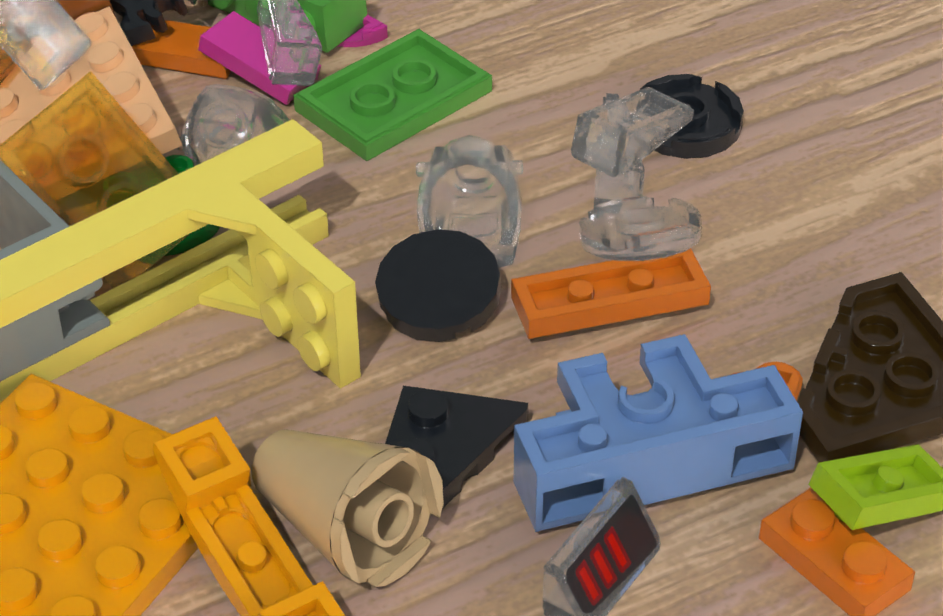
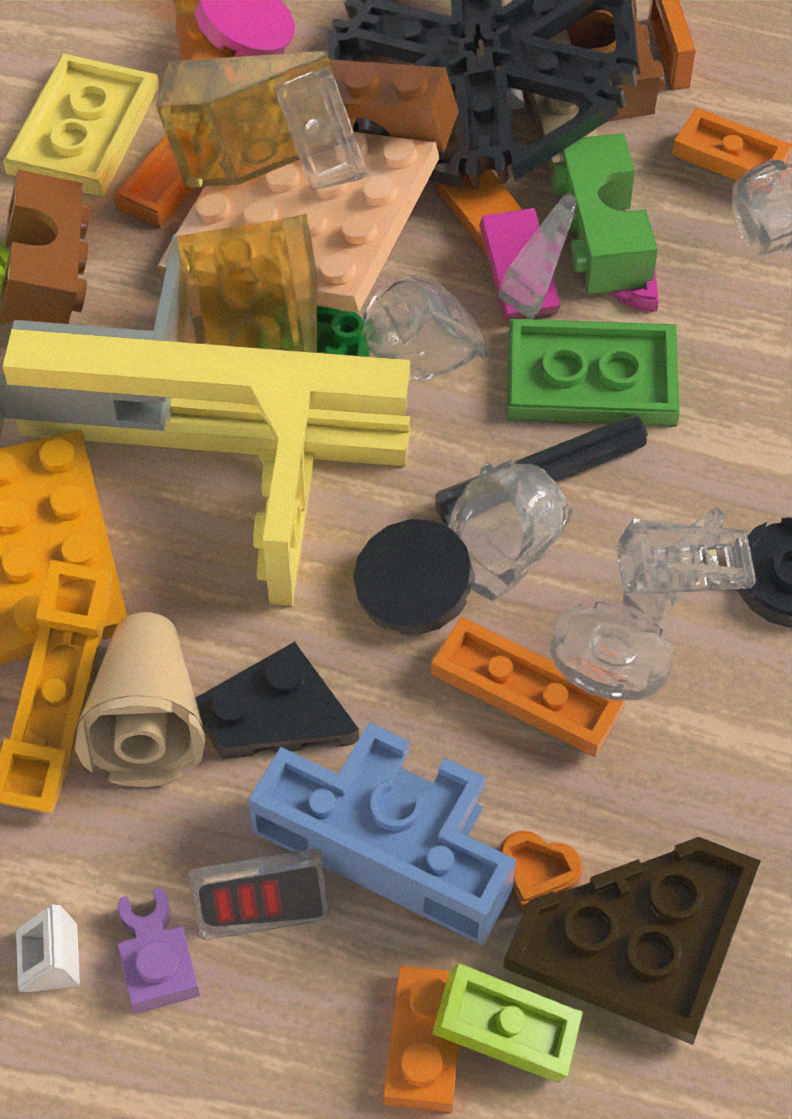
camera: 45 degrees right, 15 degrees up
(463, 120) = (567, 457): none -> black axle

